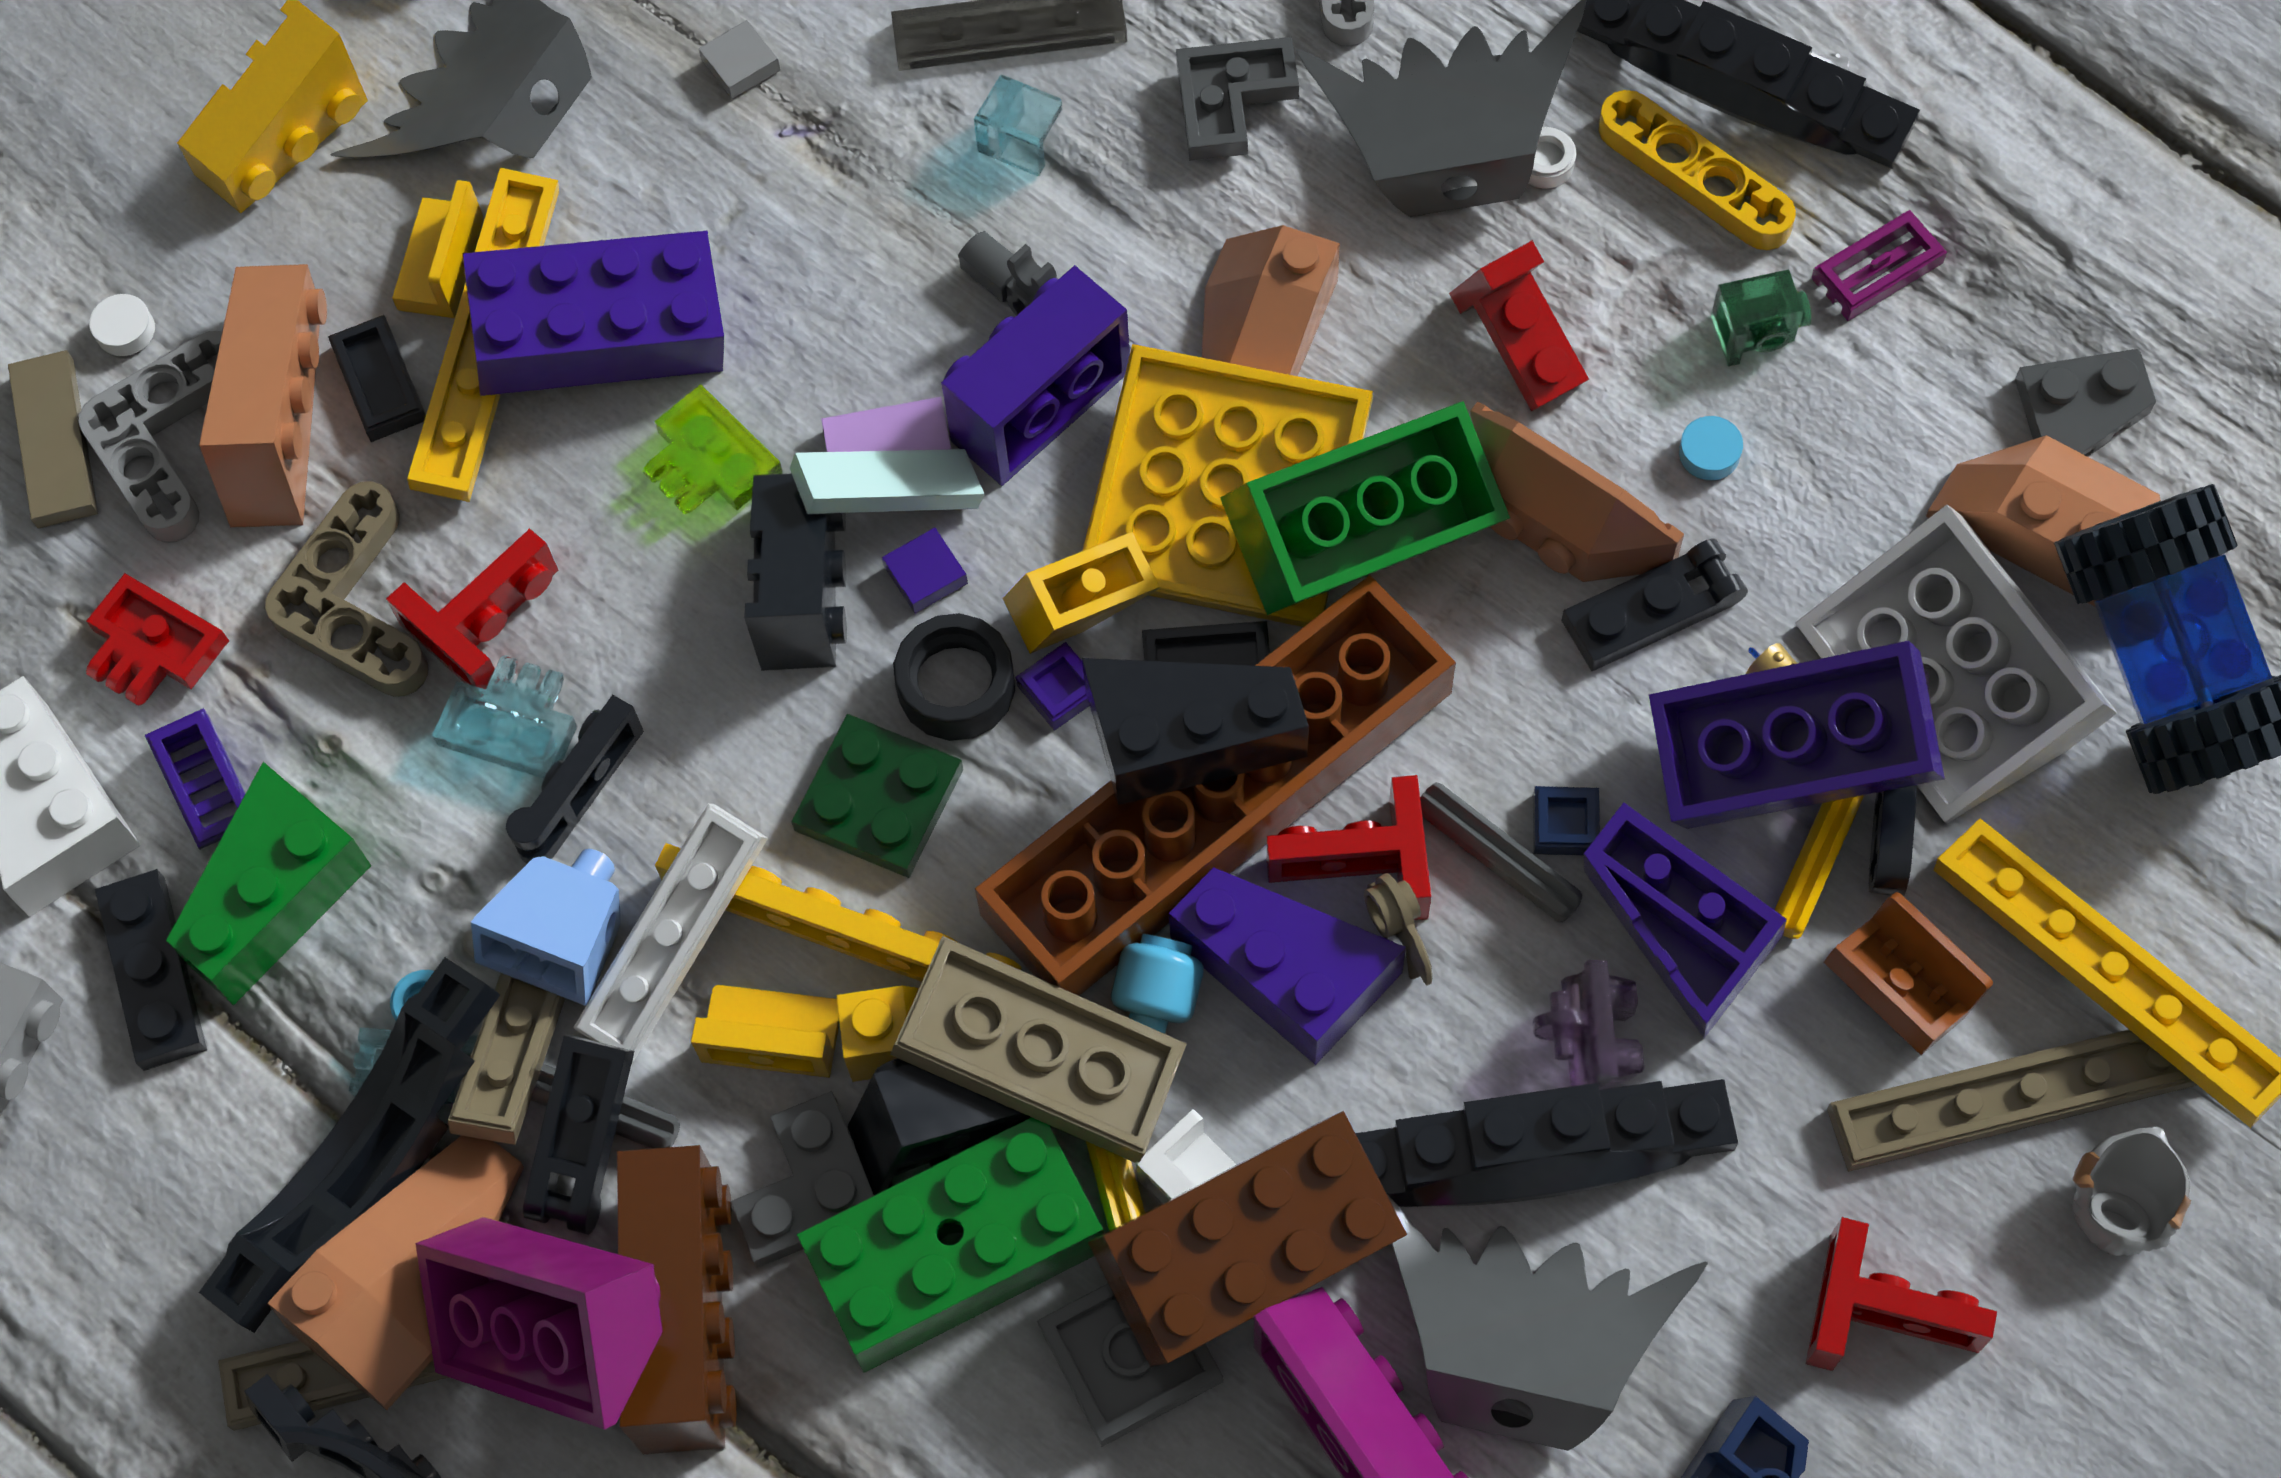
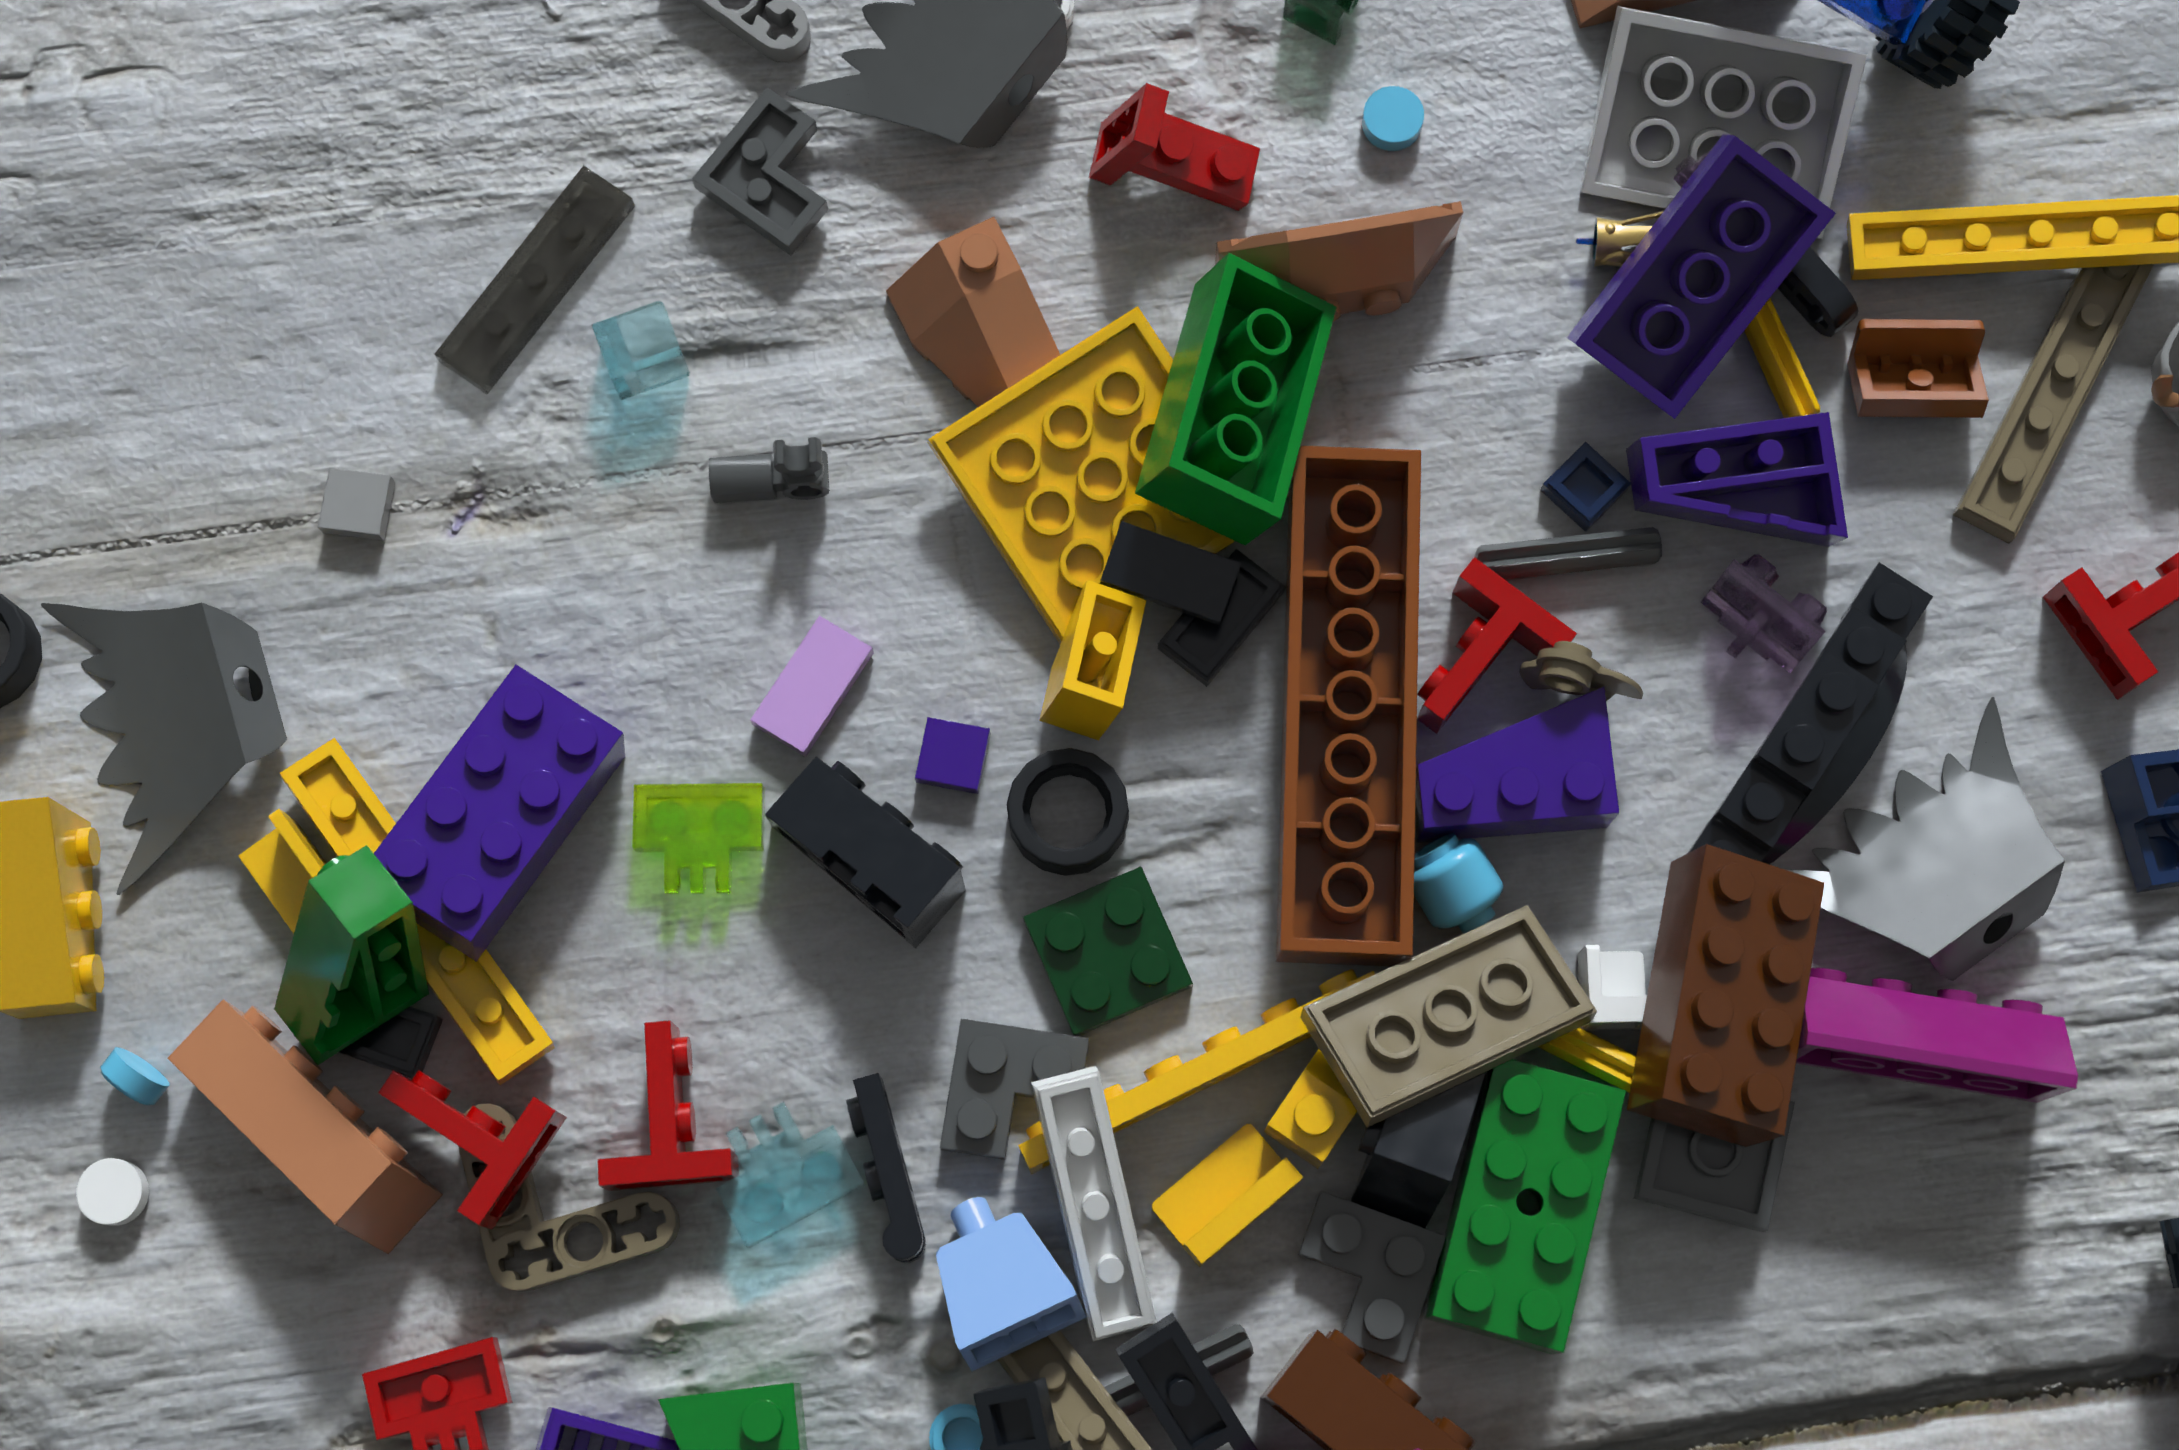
camera: 50 degrees left, 10 degrees up
(51, 439) = (166, 1333): dark tan tile -> none
(135, 433) = (234, 1266): light grey beam -> none
(210, 266) = (134, 1076): none -> medium azure tile
(357, 520) = (479, 1133): none -> red bracket
(400, 303) = (350, 956): none -> green wedge
(720, 778) = (989, 1071): none -> dark grey plate
(886, 481) = (865, 720): light aqua tile -> none
(1036, 374) = (881, 529): dark purple brick -> none
(1055, 686) = (1144, 742): dark purple tile -> none
(1191, 722) = (1305, 682): black wedge -> none
(1198, 587) = (1170, 573): none -> black tile
(1652, 605) = (1477, 275): black plate -> none

